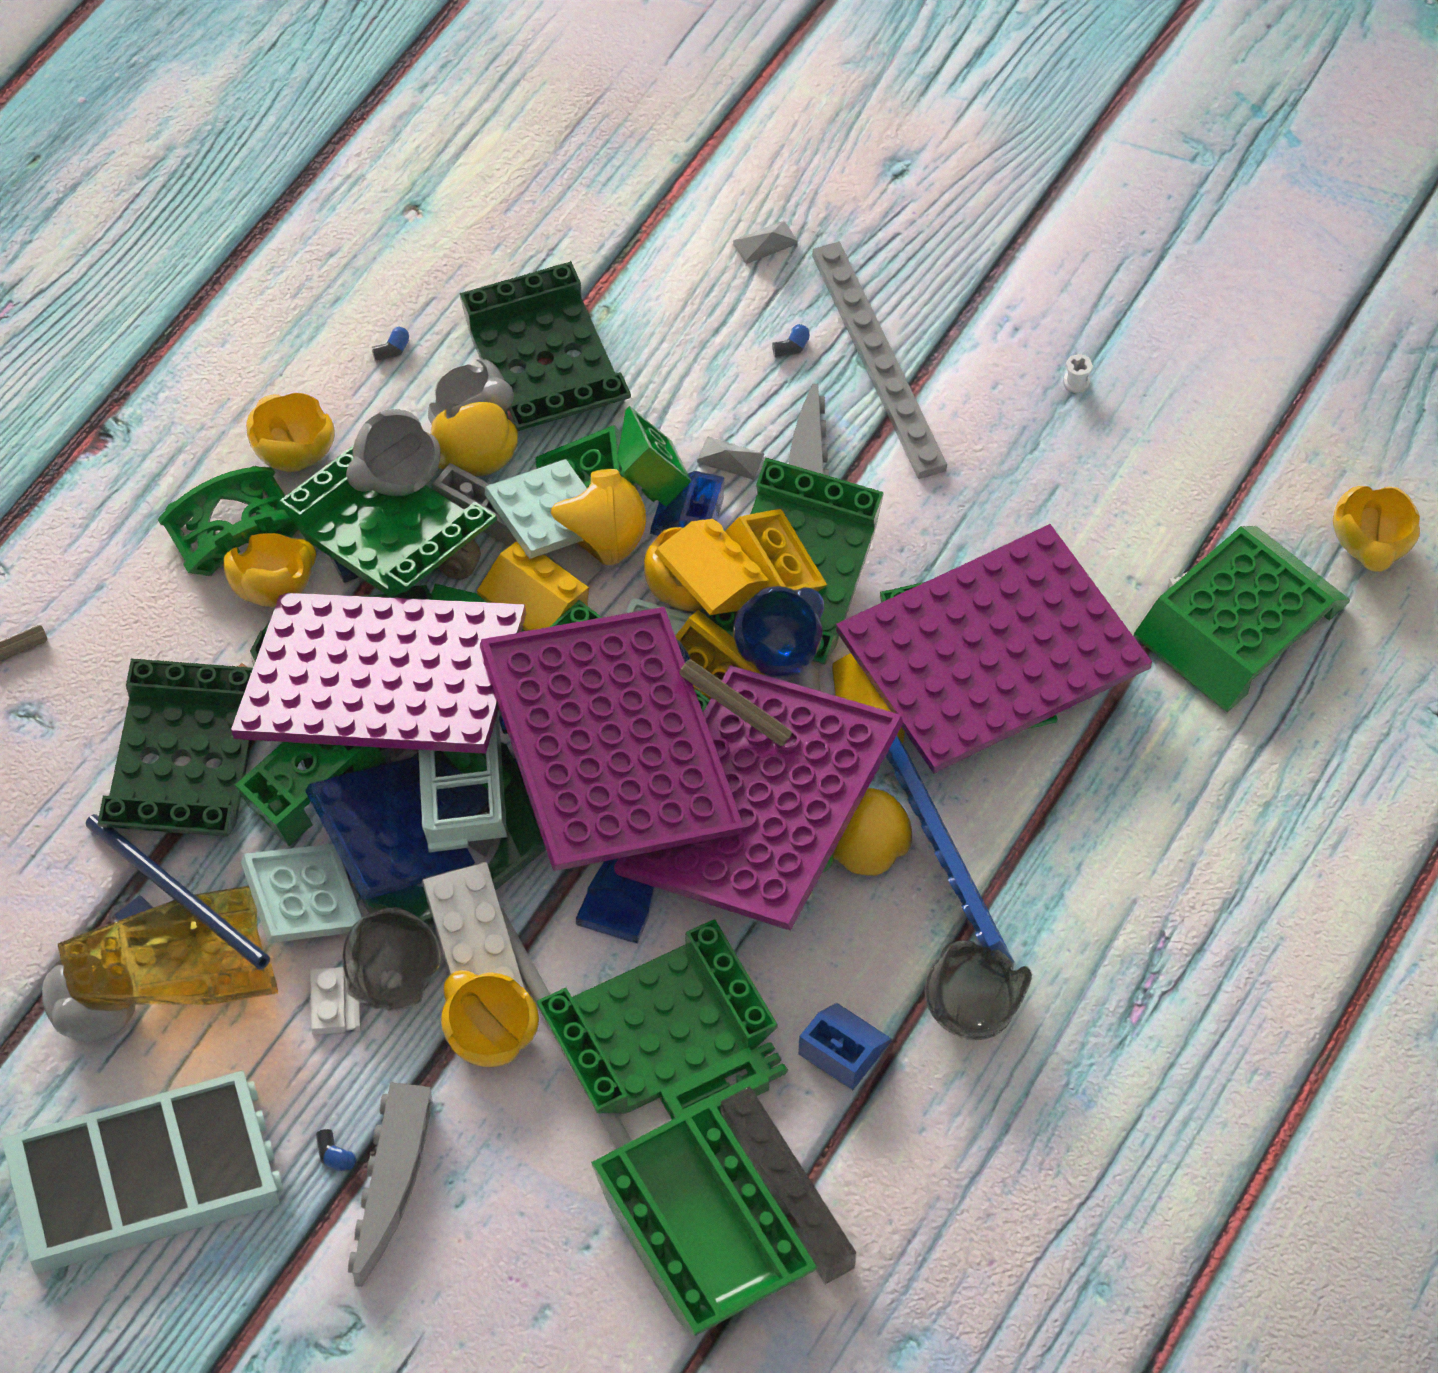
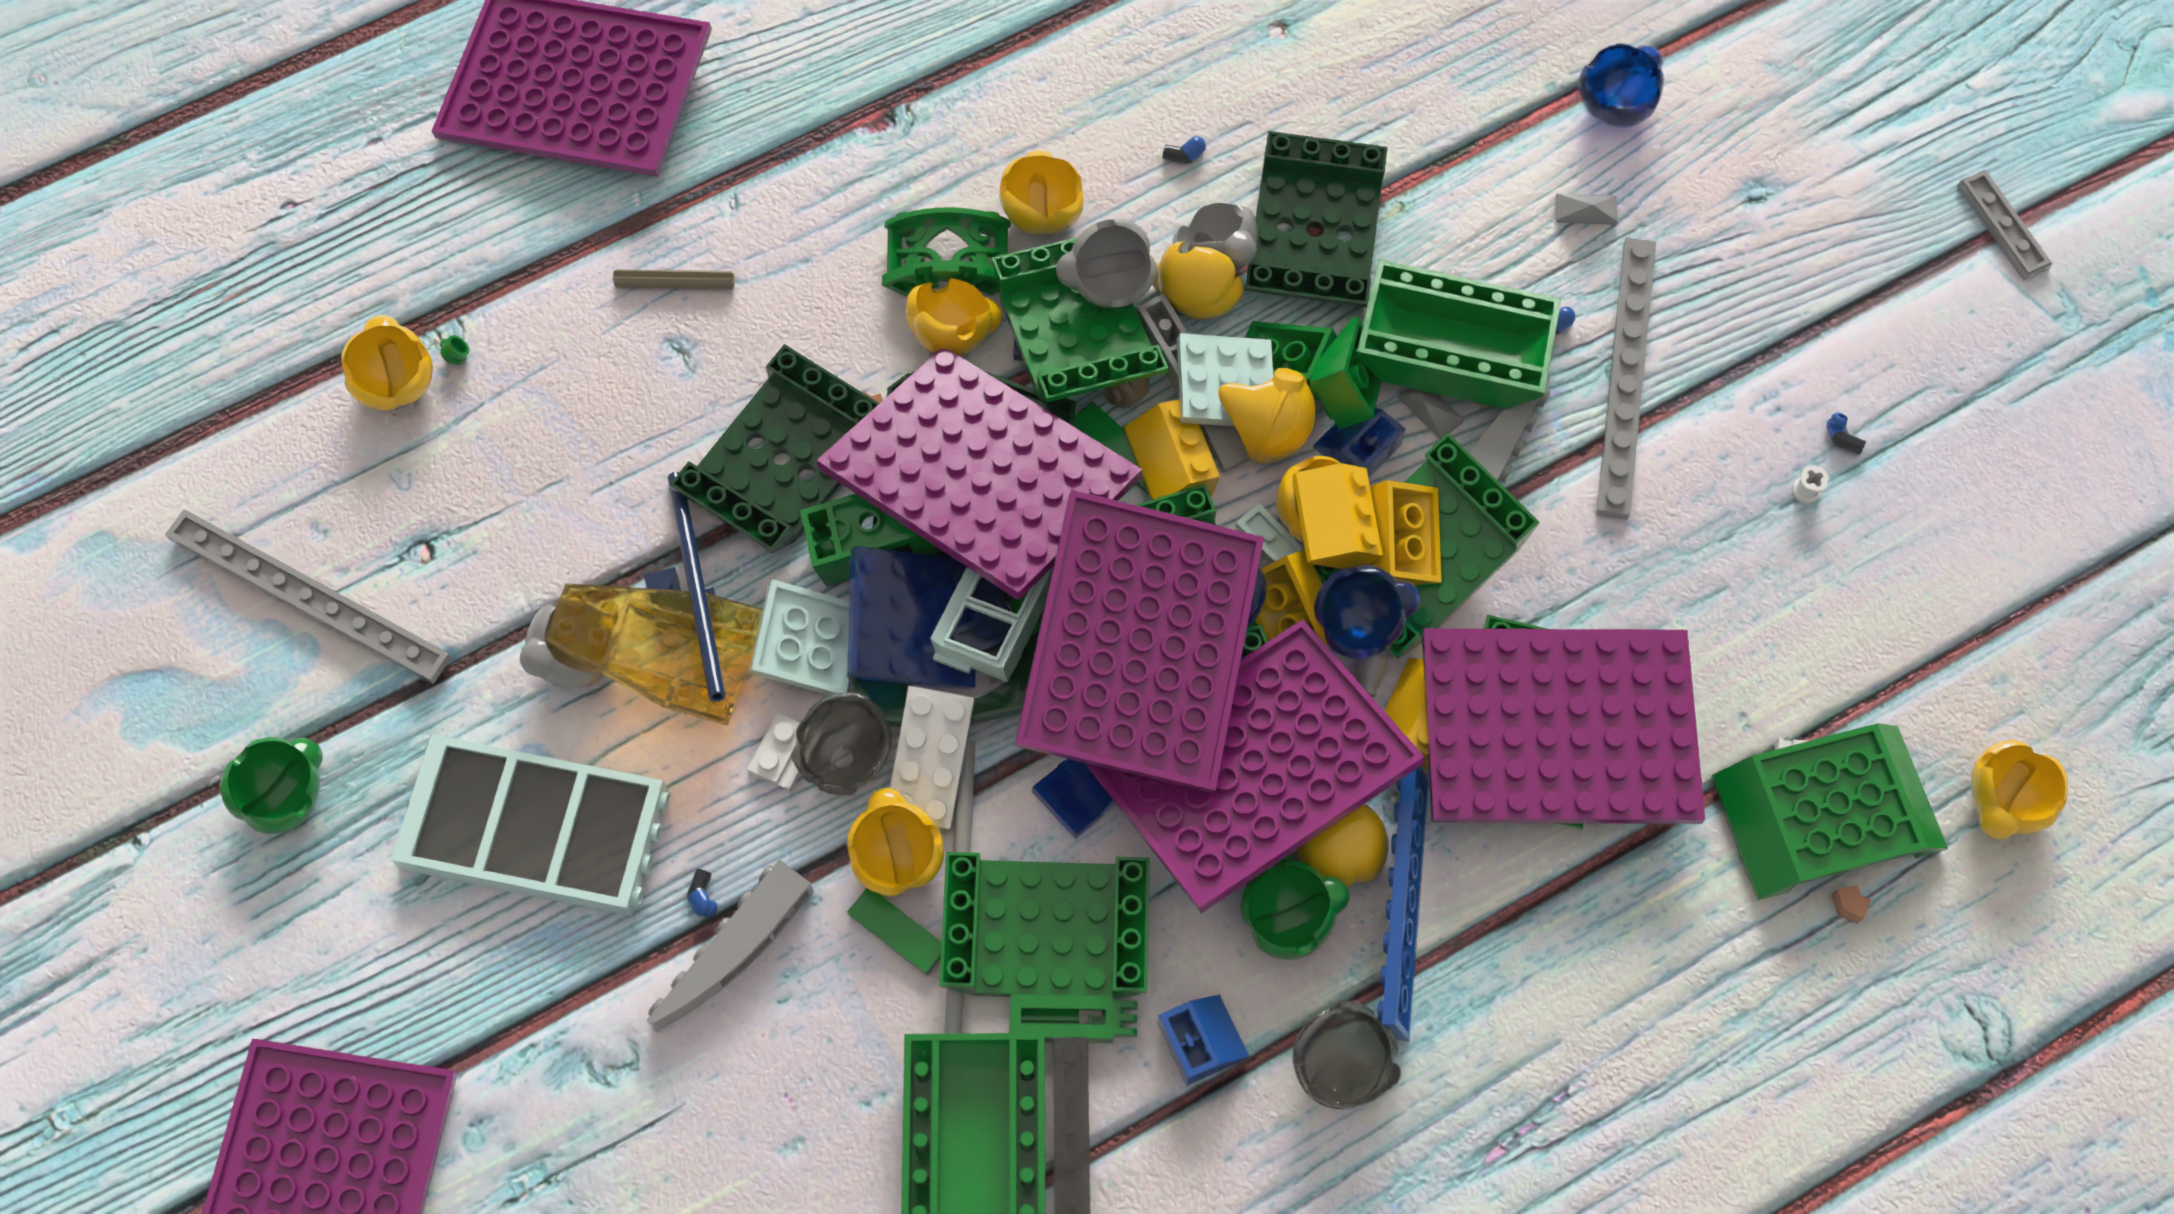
camera: 30 degrees right, 10 degrees up
(527, 1093) = (896, 930): none -> green tile
(724, 384) = (1458, 336): none -> green slope
(735, 702) = (1276, 664): dark tan axle -> none
(739, 127) = (1622, 84): none -> clear blue piece
(859, 898) = (1292, 909): none -> green piece
(1079, 326) = (1839, 434): none -> arm
(1110, 106) = (2004, 225): none -> light grey tile
(1300, 678) = (1850, 903): none -> nougat piece

